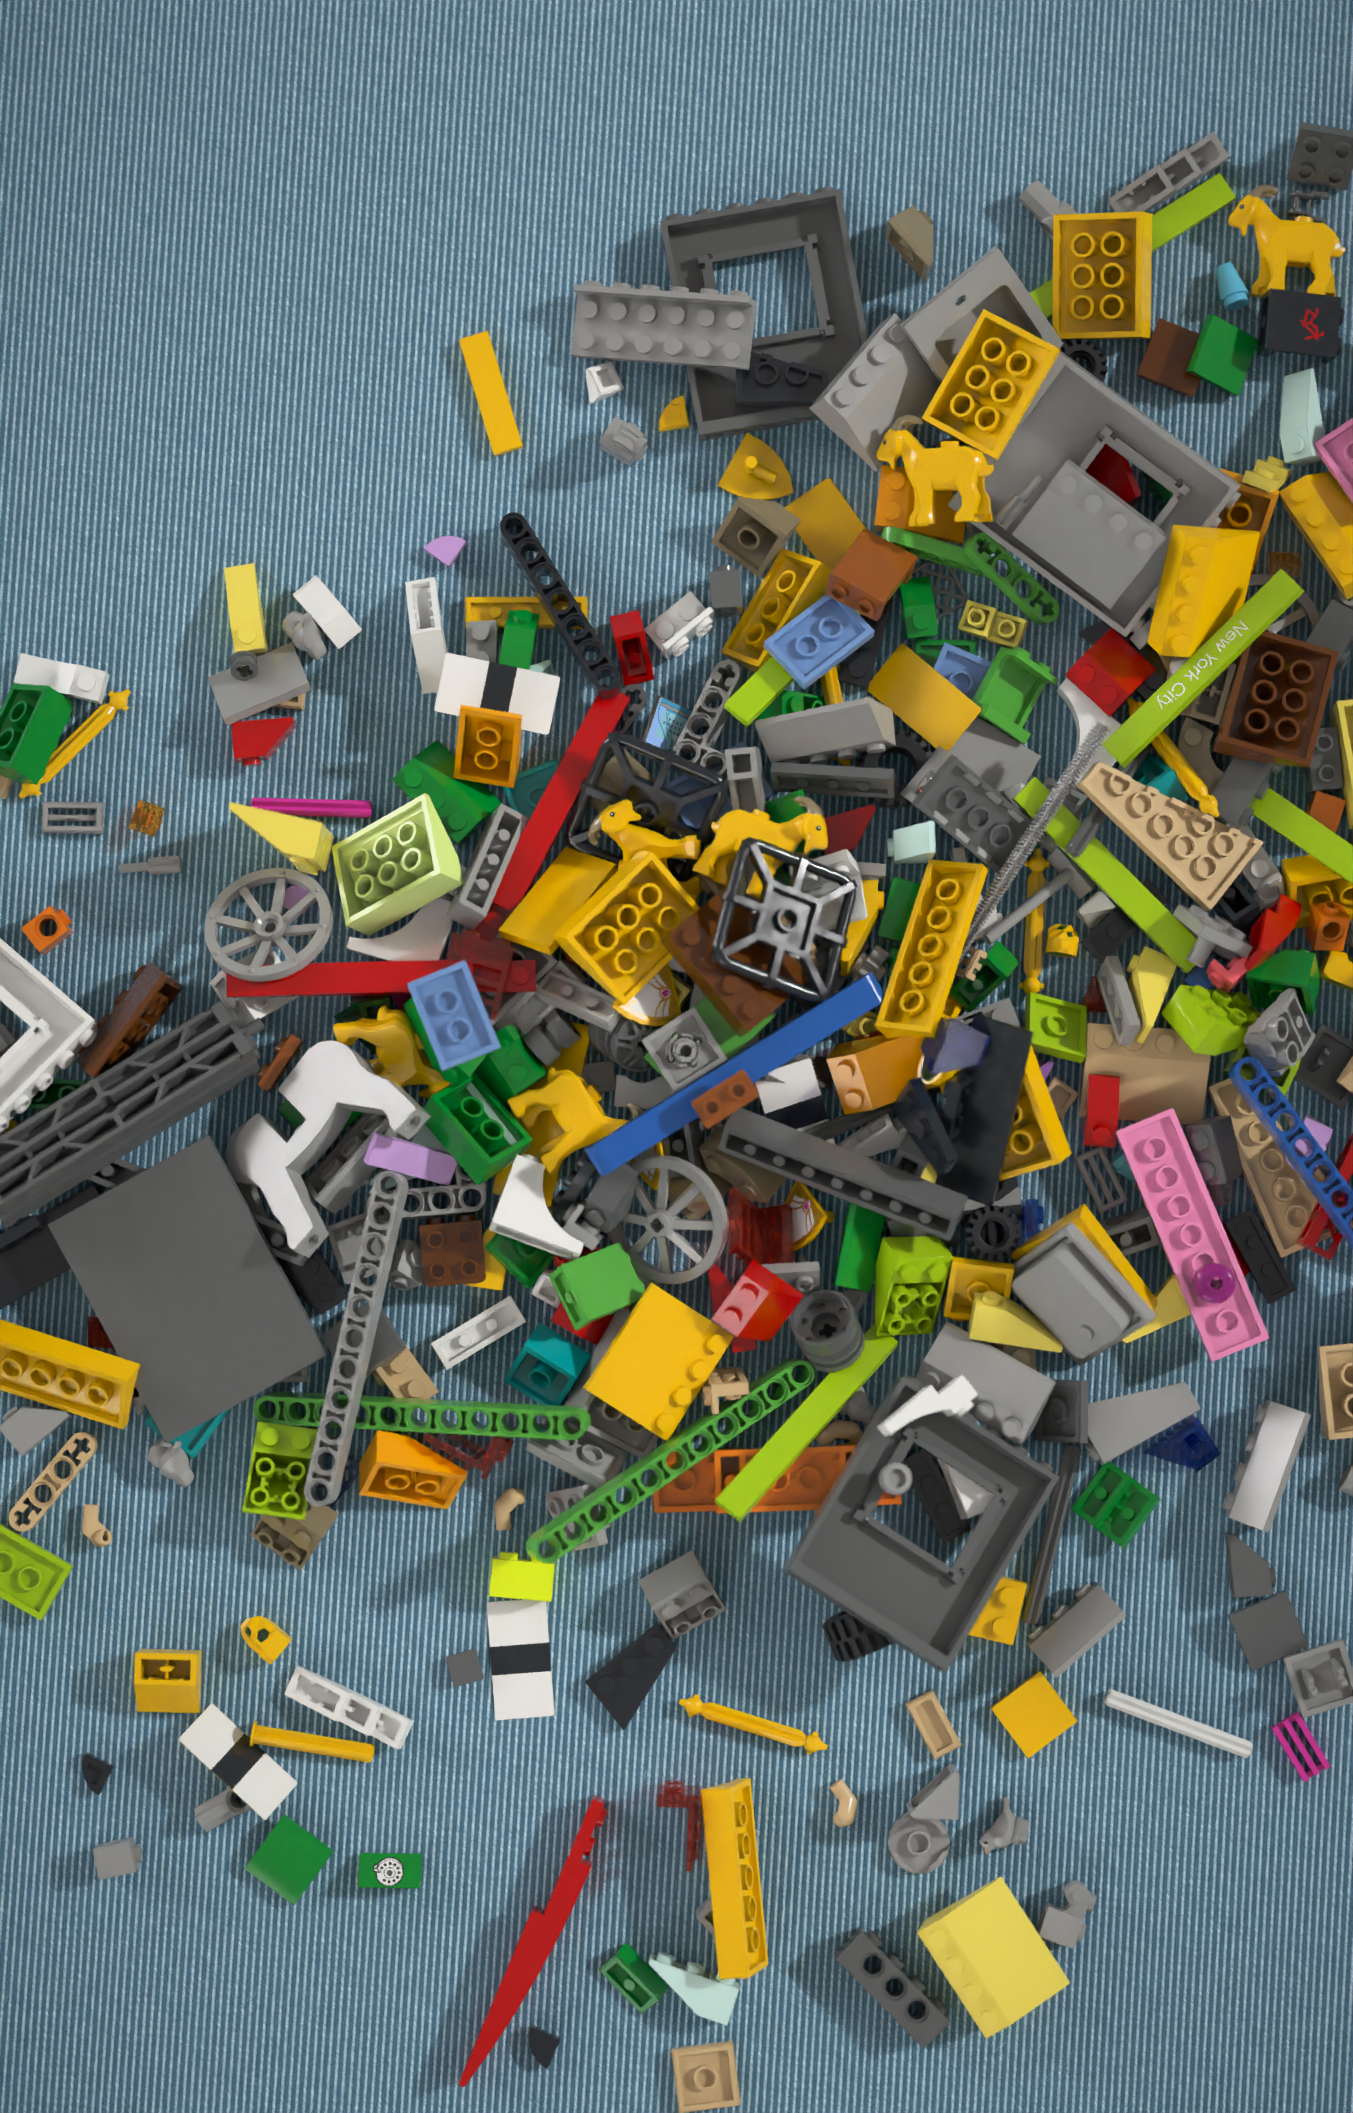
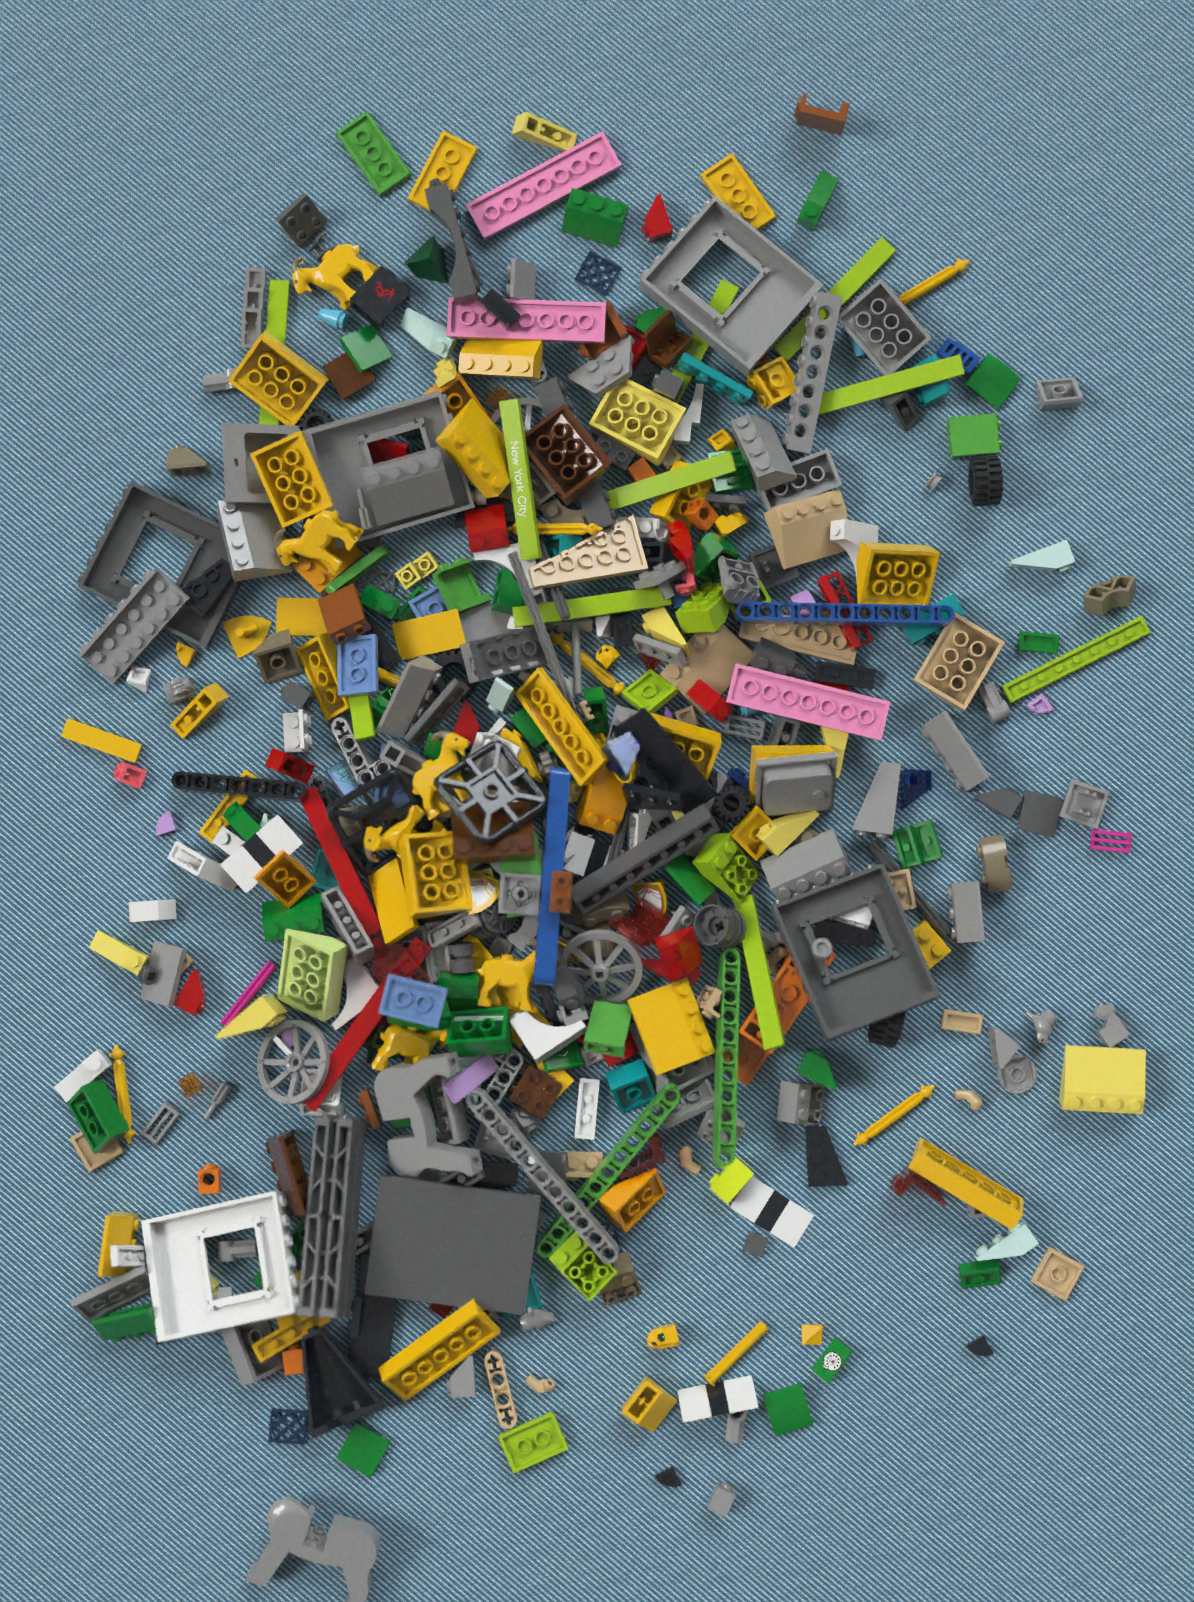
camera: 55 degrees left, 0 degrees up
(305, 633) = (155, 930): light grey animal -> none
(348, 1707) = (731, 1319): white slope -> none
(404, 1821) = (812, 1334): none -> yellow slope
(474, 459) = (129, 774): none -> coral bracket
(537, 1940) = (923, 1310): red slope -> none
(618, 485) = (199, 709): none -> yellow slope
(740, 1583) = (816, 1068): none -> green slope
(921, 2026) = (1112, 1143): dark grey brick -> none
(951, 1399) = (802, 889): white slope -> none
(1009, 583) = (399, 539): bright green beam -> none
(1033, 1714) = (994, 965): yellow tile -> none
(1047, 756) = (506, 593): none -> green slope
(1047, 1527) = (903, 887): none -> tan bracket
(1065, 1414) = (852, 835): dark grey tile -> none
(1157, 1626) = (996, 871): none -> dark tan brick
(1178, 1723) = (1053, 895): white axle -> none
(1202, 1283) = (834, 710): magenta head -> none

